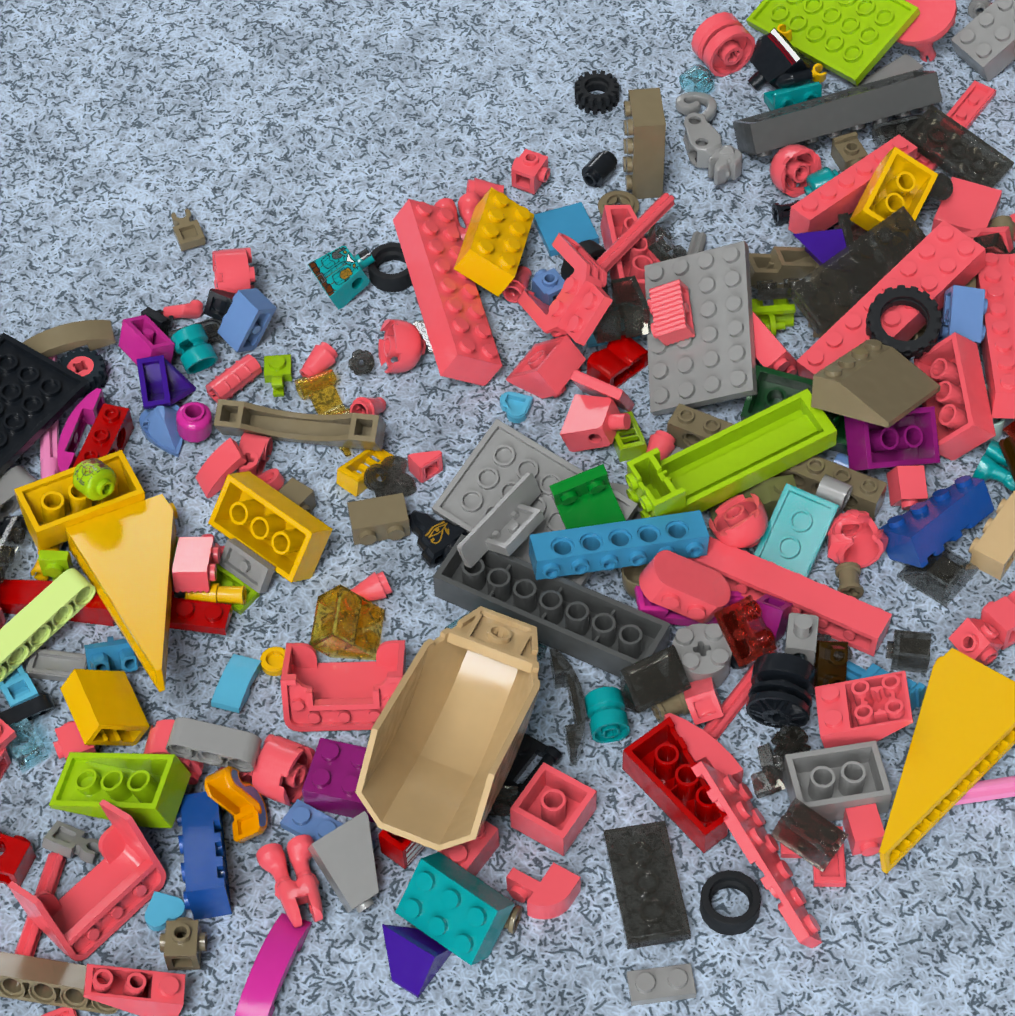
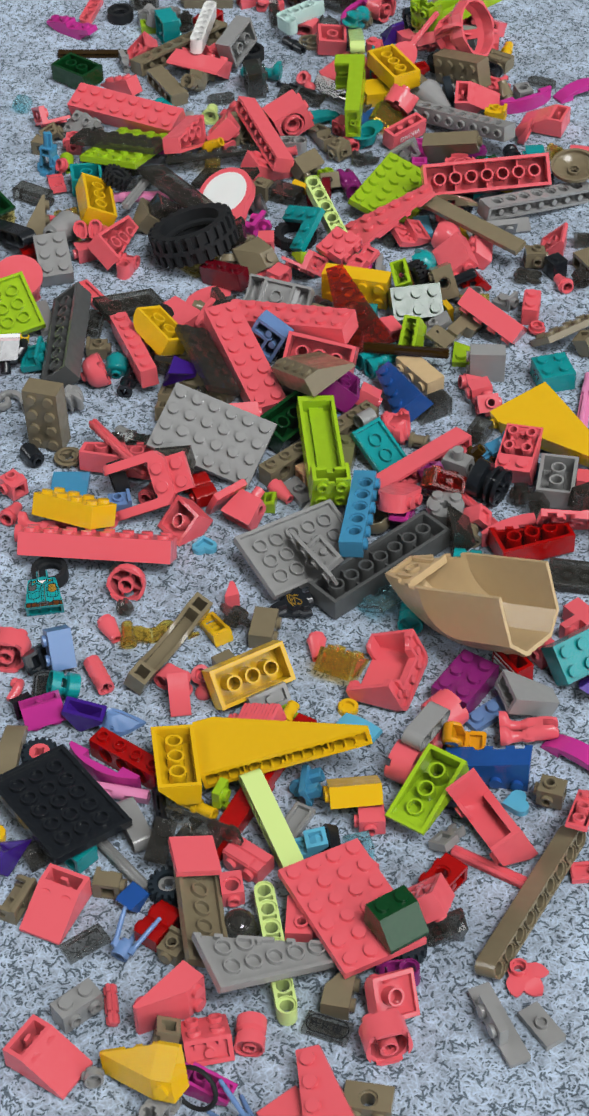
camera: 70 degrees left, 10 degrees down
(94, 479) = (178, 738): lime head -> none
(194, 422) = (129, 699): dark pink head -> none
(277, 371) = (106, 652): lime plate -> none
(368, 405) = (170, 610): coral cone -> none
(586, 499) = (323, 517): green bracket -> none
(671, 312) = (199, 437): coral brick -> none
(740, 522) = (363, 458): coral cylinder -> none
(907, 297) = (265, 336): black tyre -> none

